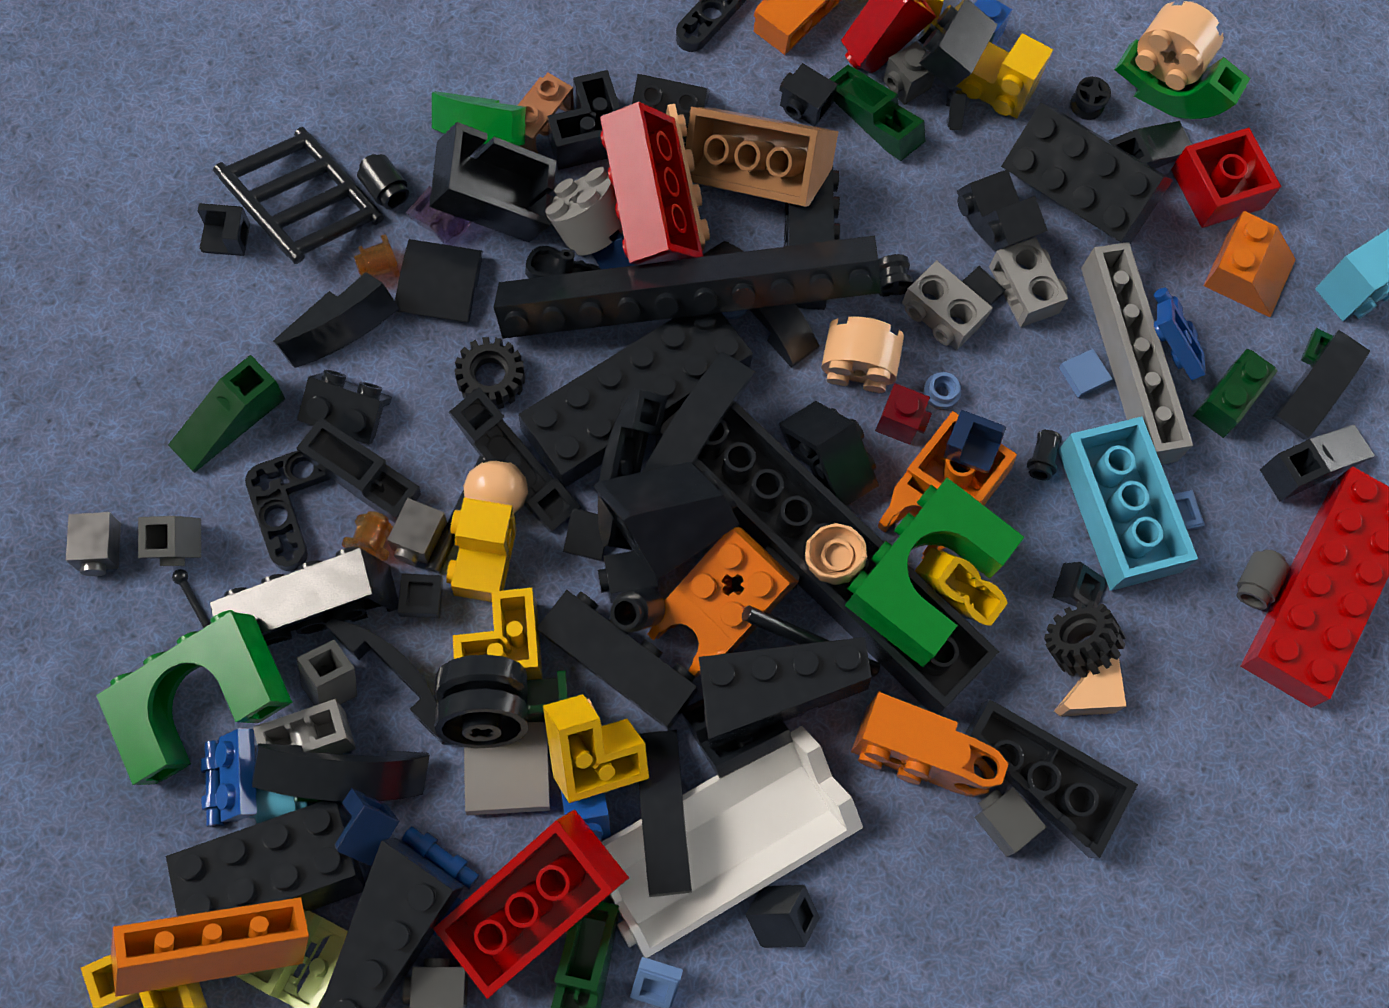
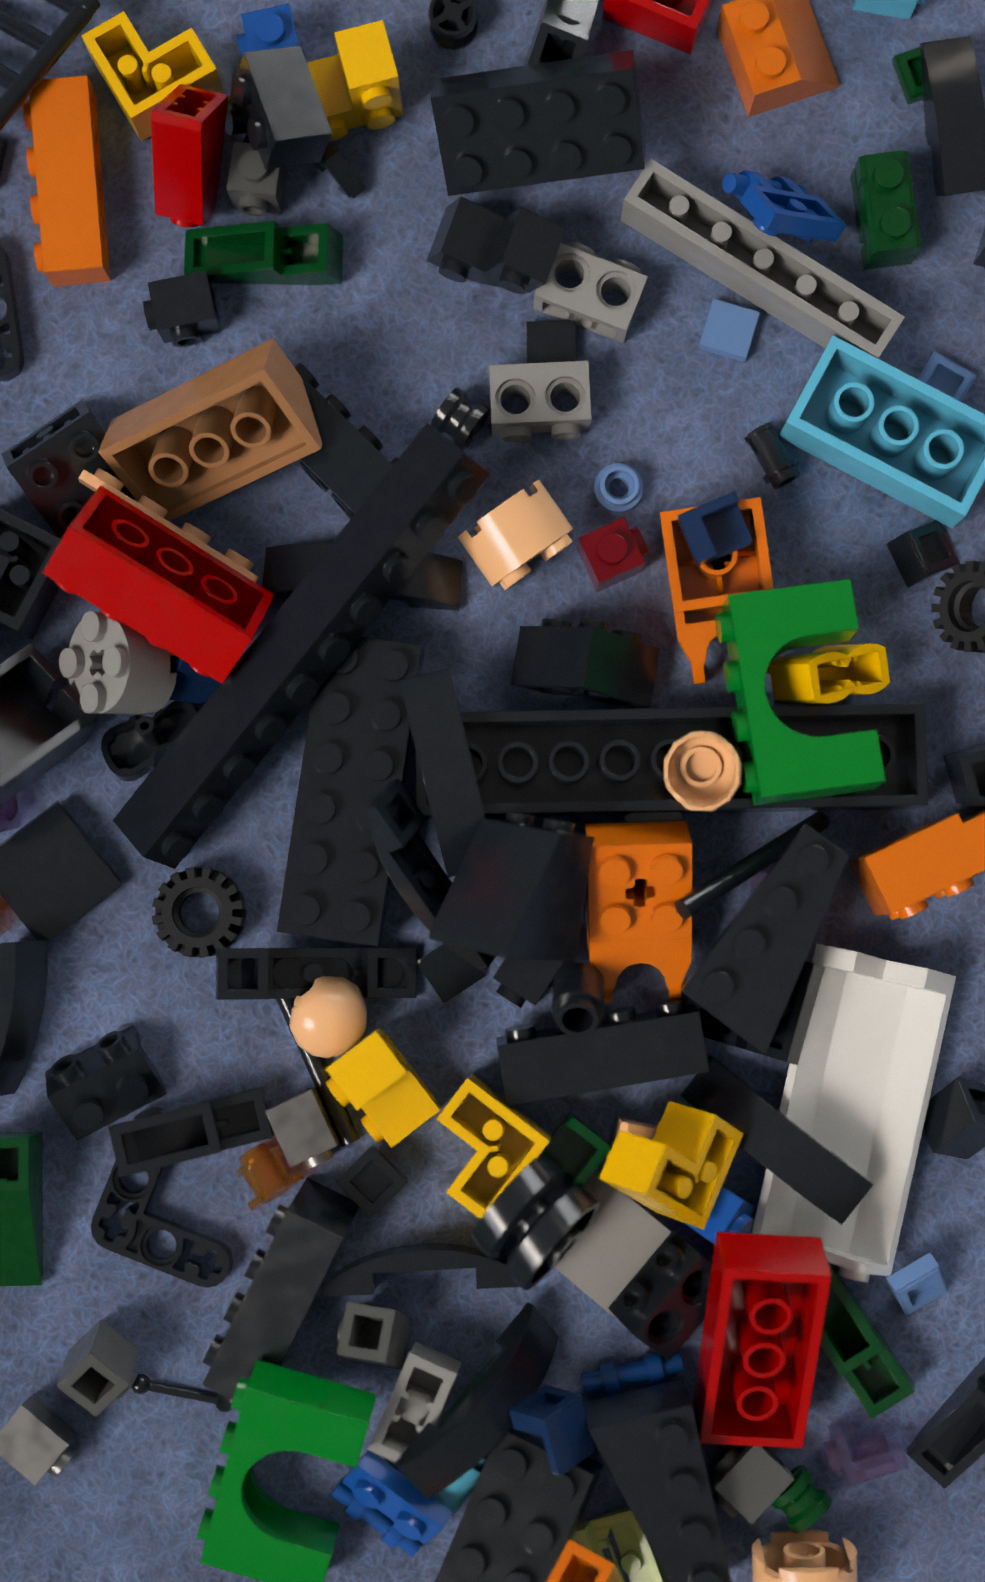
camera: 35 degrees left, 15 degrees up
(509, 819) = (666, 1296): none -> black brick

